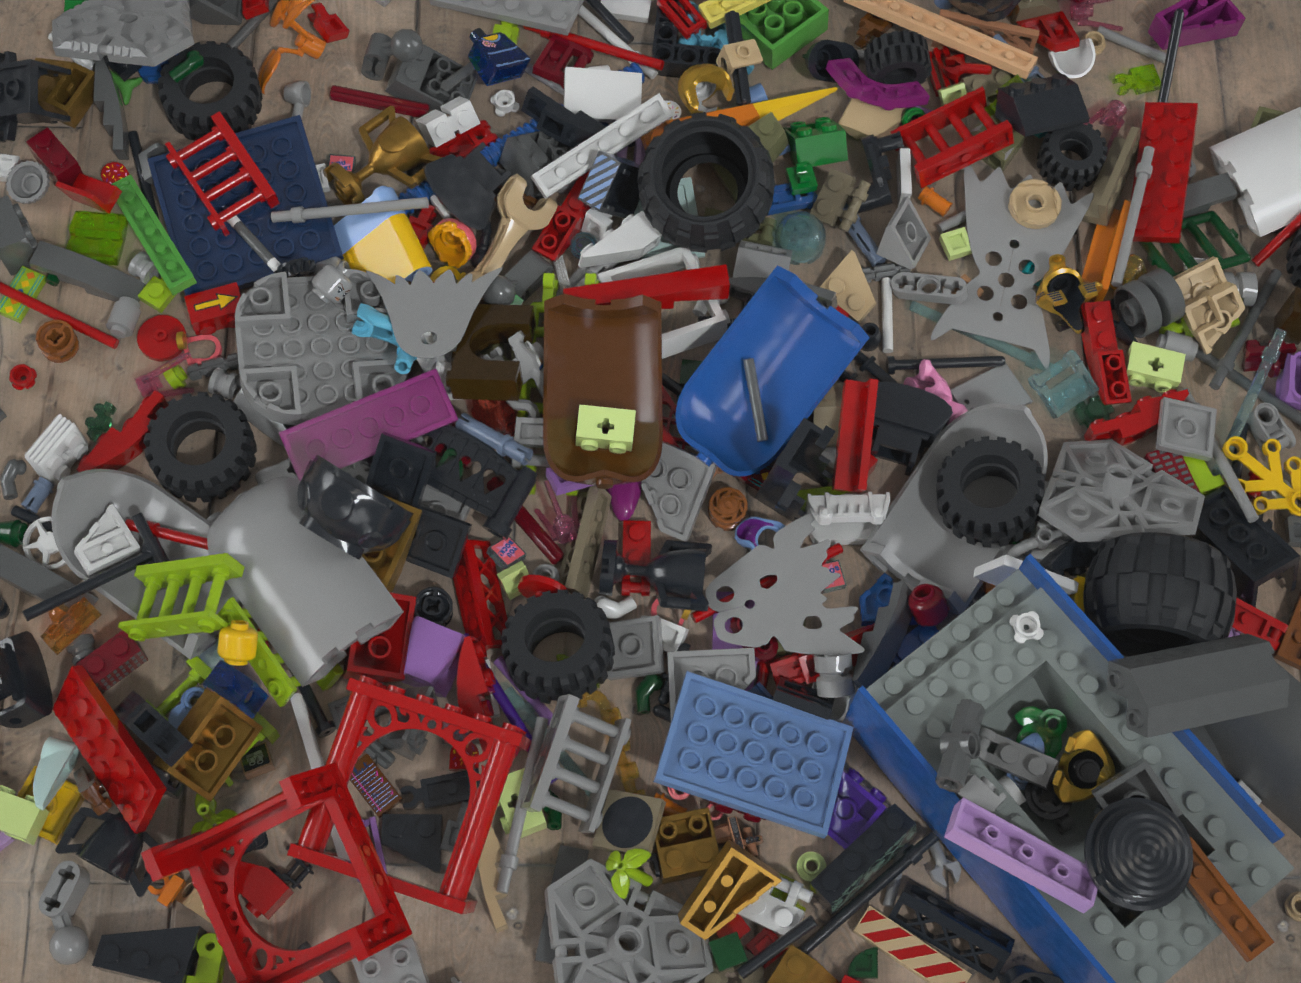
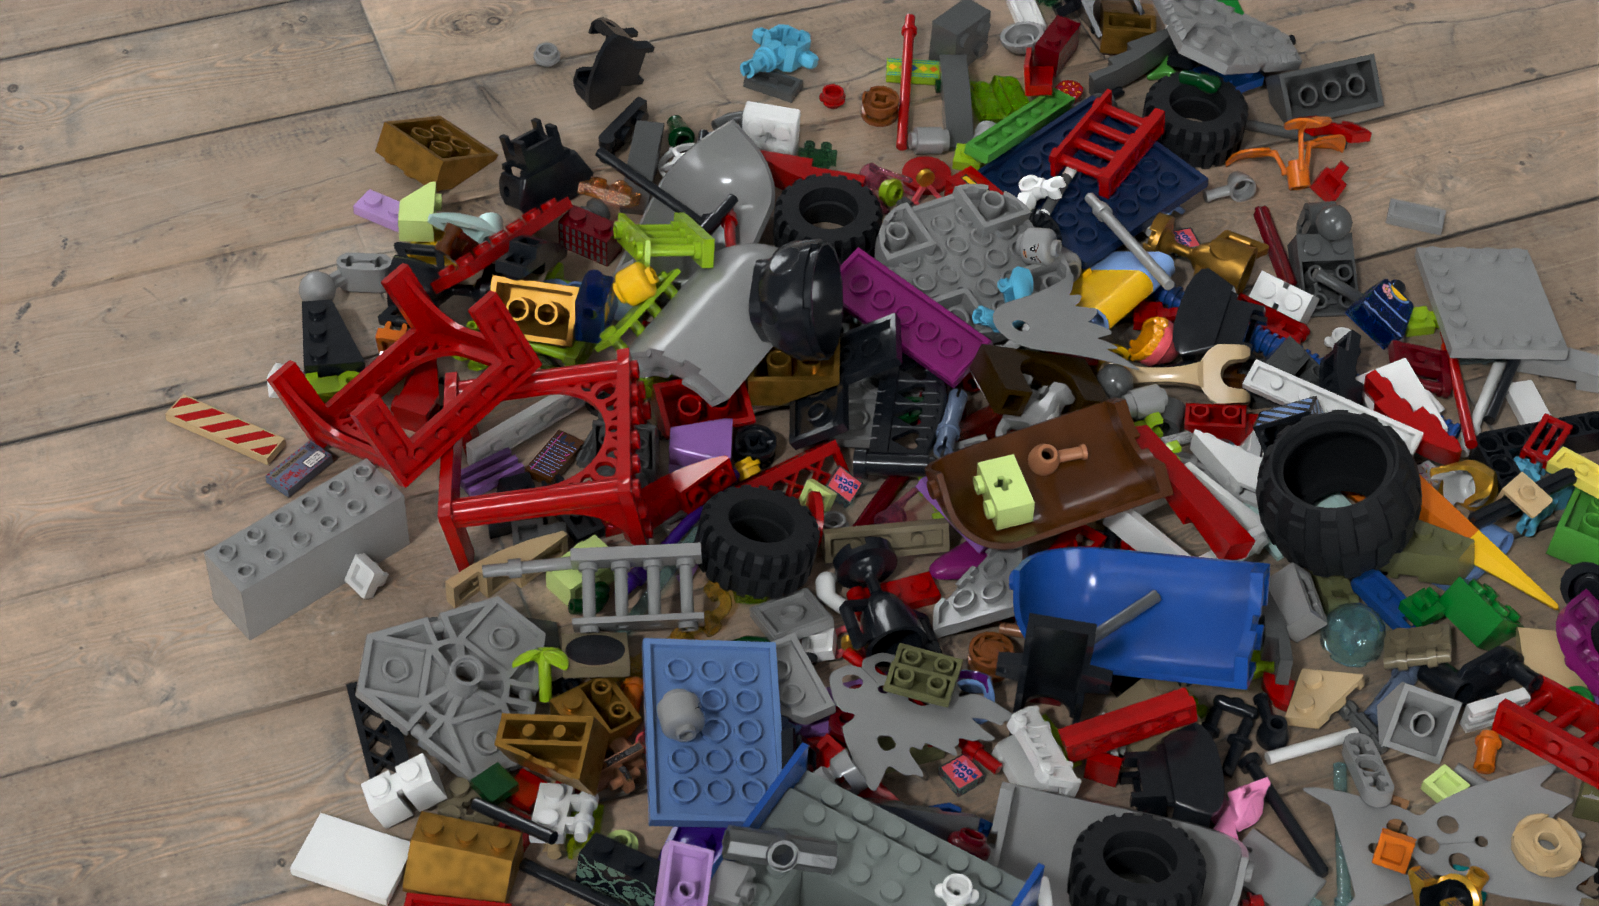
camera: 70 degrees right, 20 degrees down
(106, 543) = (698, 190): white wing -> none
(242, 257) = (1037, 188): none -> white bar
(460, 622) = (747, 468): none -> yellow plate
(529, 279) = (1146, 401): none -> light grey brick
(572, 382) = (1046, 467): none -> nougat bar
(620, 101) = (1435, 443): none -> red slope
(747, 775) = (680, 715): none -> light grey head
(750, 568) = (923, 675): none -> olive slope
(1013, 305) = (1394, 850): none -> orange tile

